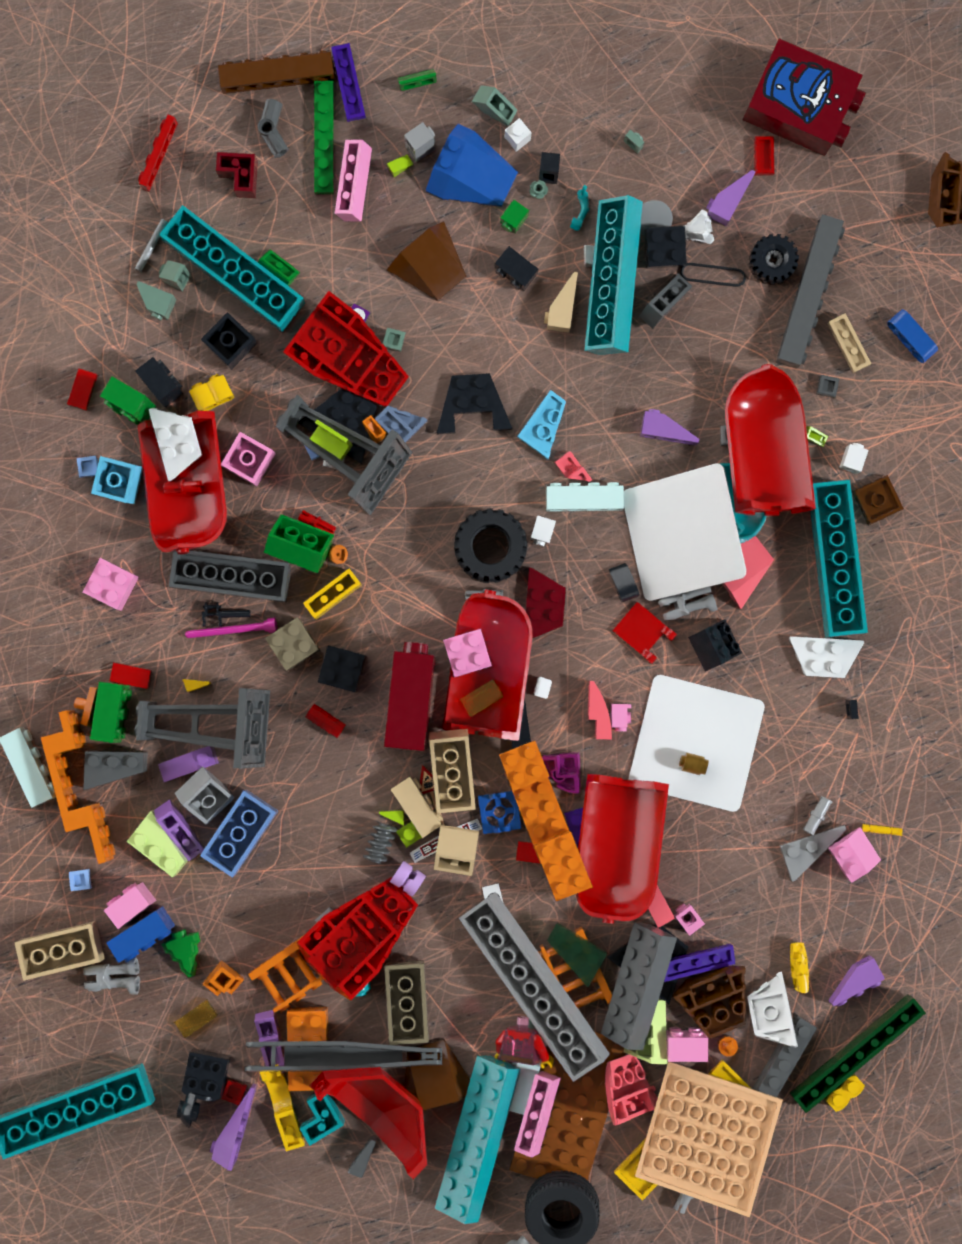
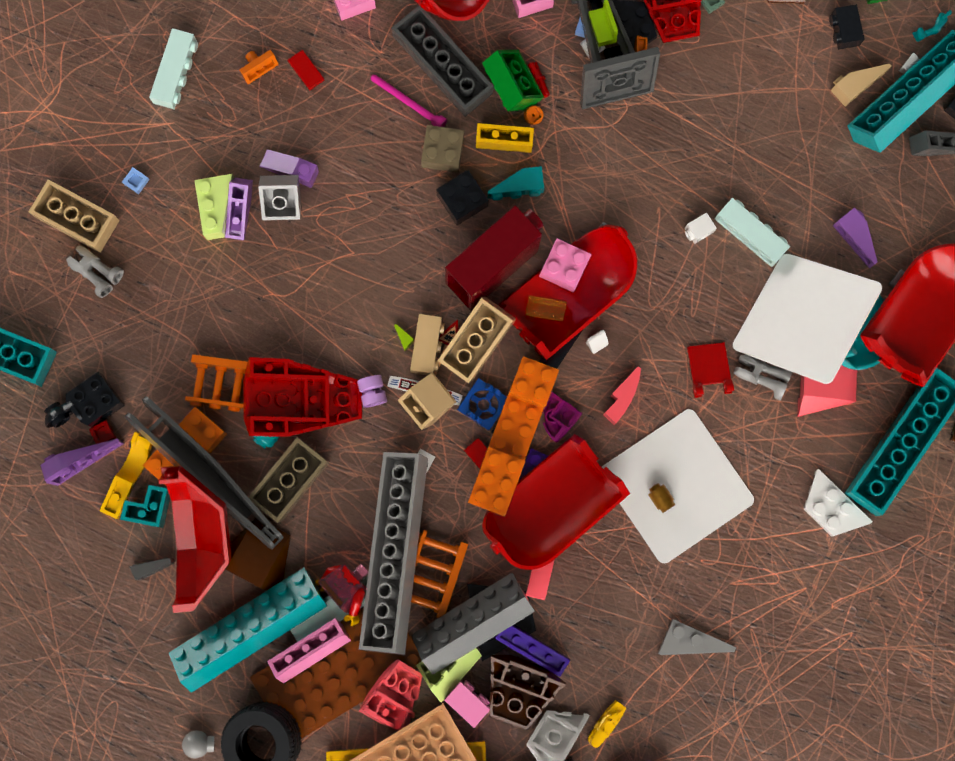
camera: 40 degrees right, 5 degrees down
(74, 818) = (174, 127): orange bracket -> none
(110, 712) = (268, 80): green brick -> none
(110, 766) = (232, 119): dark grey wedge -> none
(132, 903) = (154, 227): bright pink brick -> none
(141, 935) = (142, 256): blue brick -> none
(183, 949) = (162, 297): green rock -> none
(192, 685) = (344, 116): yellow piece -> none
(196, 1018) = (124, 355): clear yellow tile -> none
(223, 614) = (413, 86): black piece -> none
(223, 979) = (171, 343): orange brick -> none
(239, 833) = (280, 247): medium blue brick -> none
(250, 729) = (358, 175): dark grey piece -> none
(269, 1031) = (172, 405): medium lavender slope -> none
(325, 721) = (416, 224): red axle -> none
(377, 614) = (524, 182): none -> teal slope
(380, 842) = (375, 346): dark grey piece -> none
(400, 421) = (667, 66): sand blue wing -> none
(408, 834) = (402, 361): lime plate -> none
(472, 395) = (733, 89): black wing -> none
(490, 519) = (666, 185): black tyre -> none
(543, 424) = (768, 153): medium azure wing -> none
(544, 603) = (653, 283): dark red wing -> none
(571, 468) = (761, 203): coral slope -> none
(577, 952) = (449, 560): clear green wing -> none
(619, 716) = (637, 413): bright pink brick -> none
(624, 582) = (727, 320): black panel -> none
(693, 923) = (557, 617): bright pink brick -> none
(715, 645) = (755, 424): black slope -> none
(727, 1046) = (498, 734): orange tile -> none
(817, 815) = (721, 621): light grey pin -> none
(851, 709) = (818, 564): black tile -> none
(854, 855) = (724, 676): bright pink slope -> none
(882, 829) = (761, 677): yellow wheel -> none

